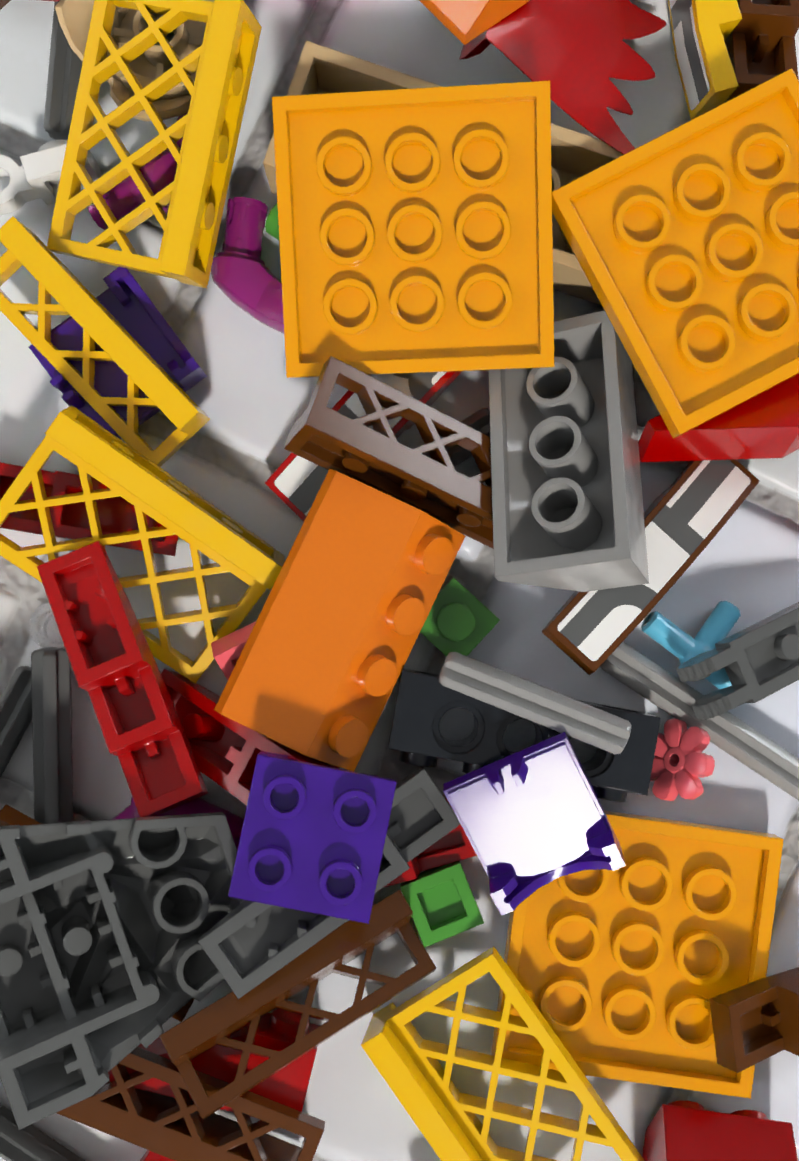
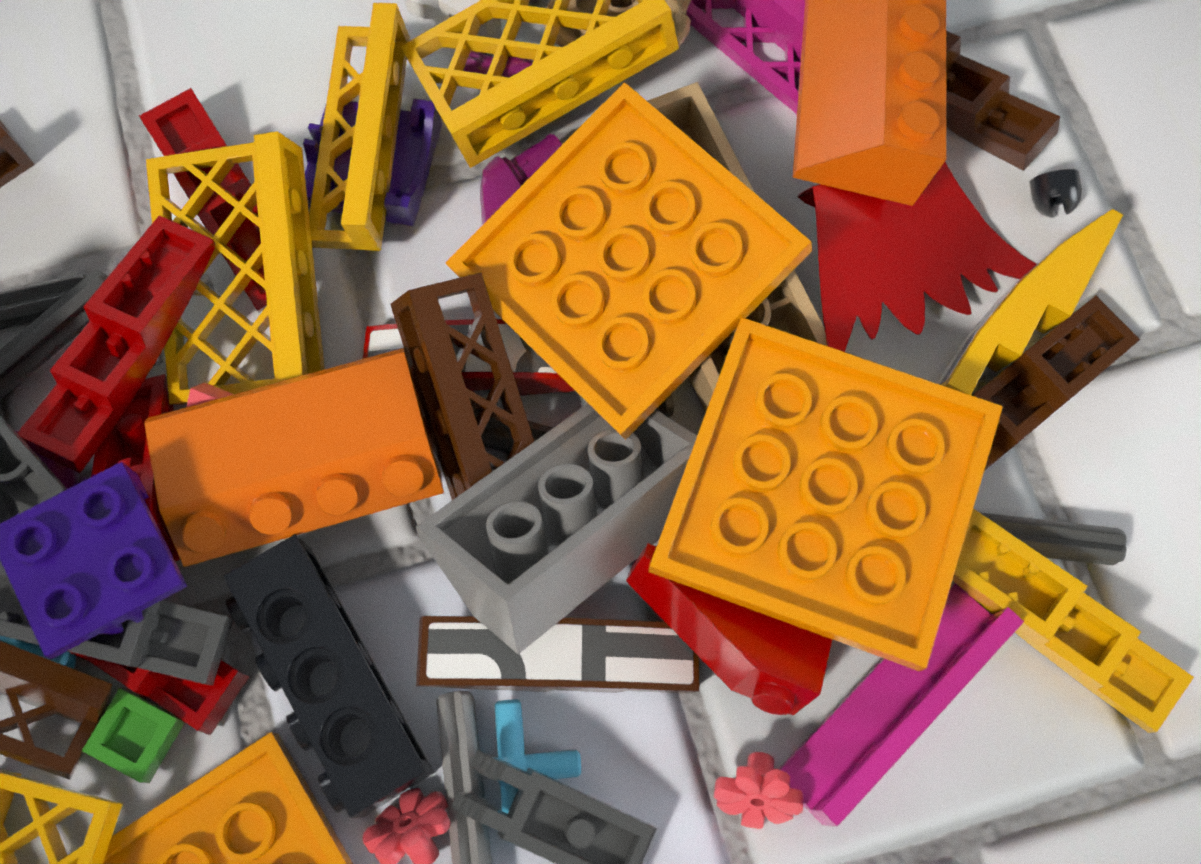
camera: 55 degrees right, 15 degrees down
(457, 620) = (378, 553): bright green plate -> none
(533, 820) = (250, 739): piece -> none
(535, 703) = (349, 655): light grey axle -> none

